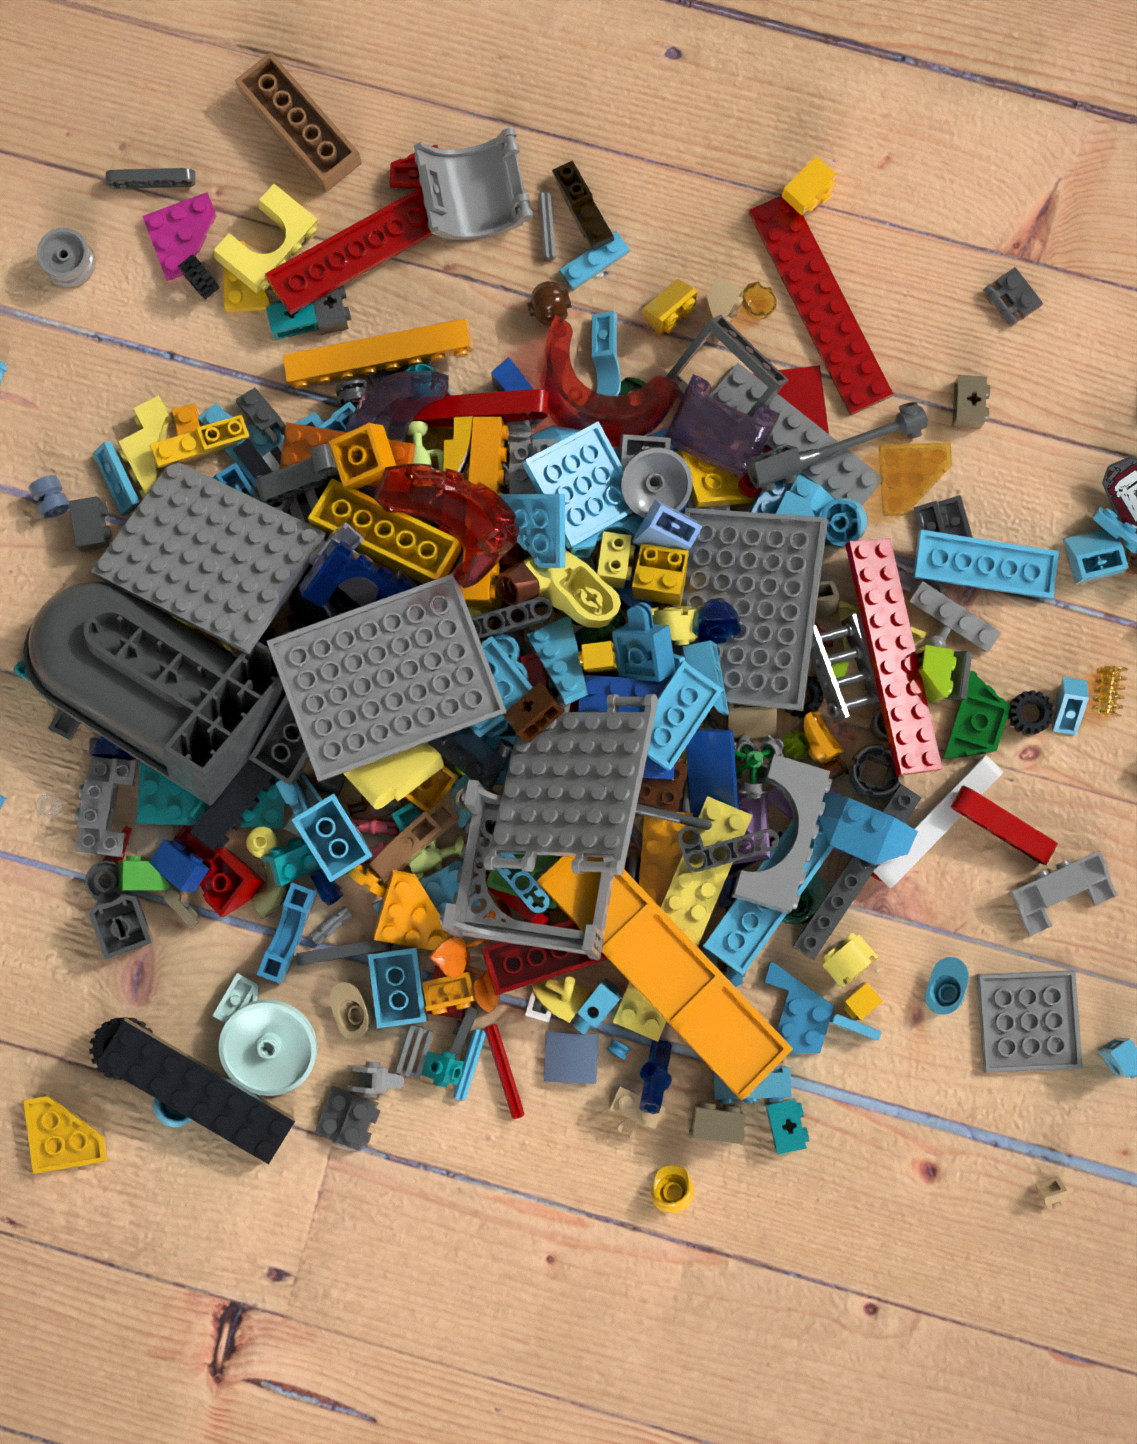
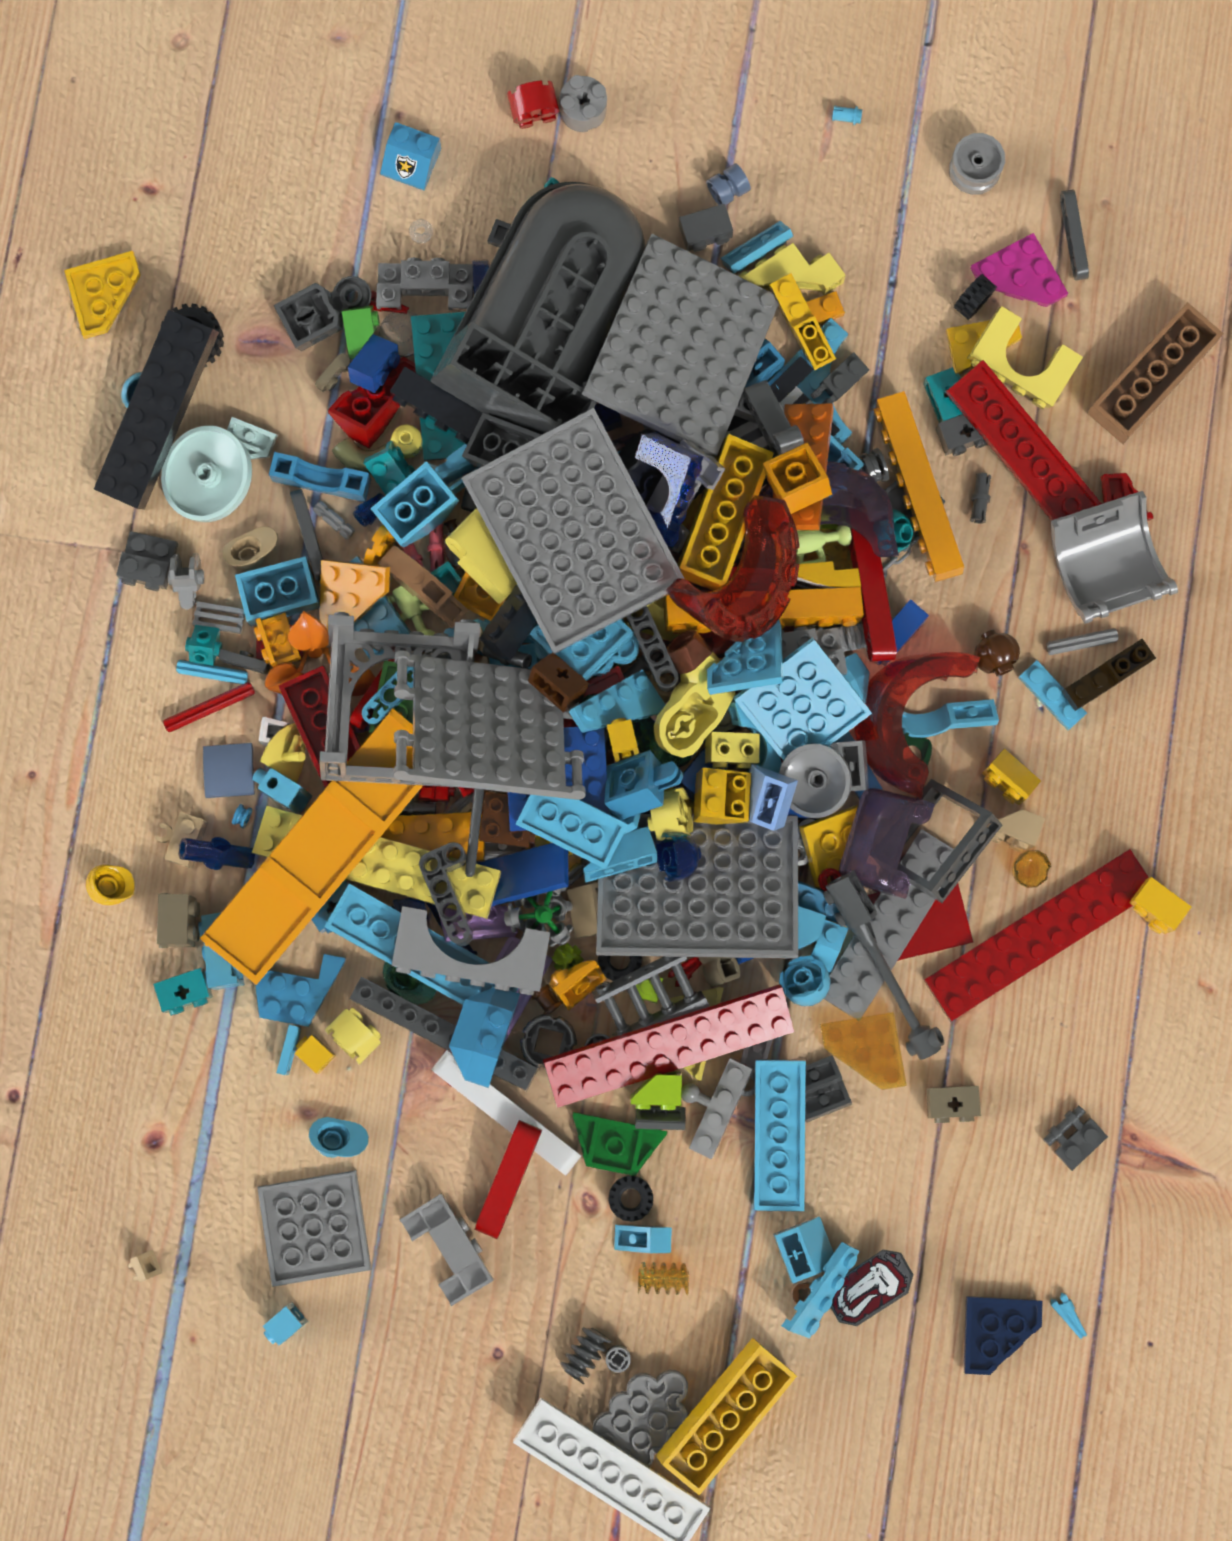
camera: 80 degrees right, 0 degrees up
(396, 300) = (980, 498): none -> dark grey pin

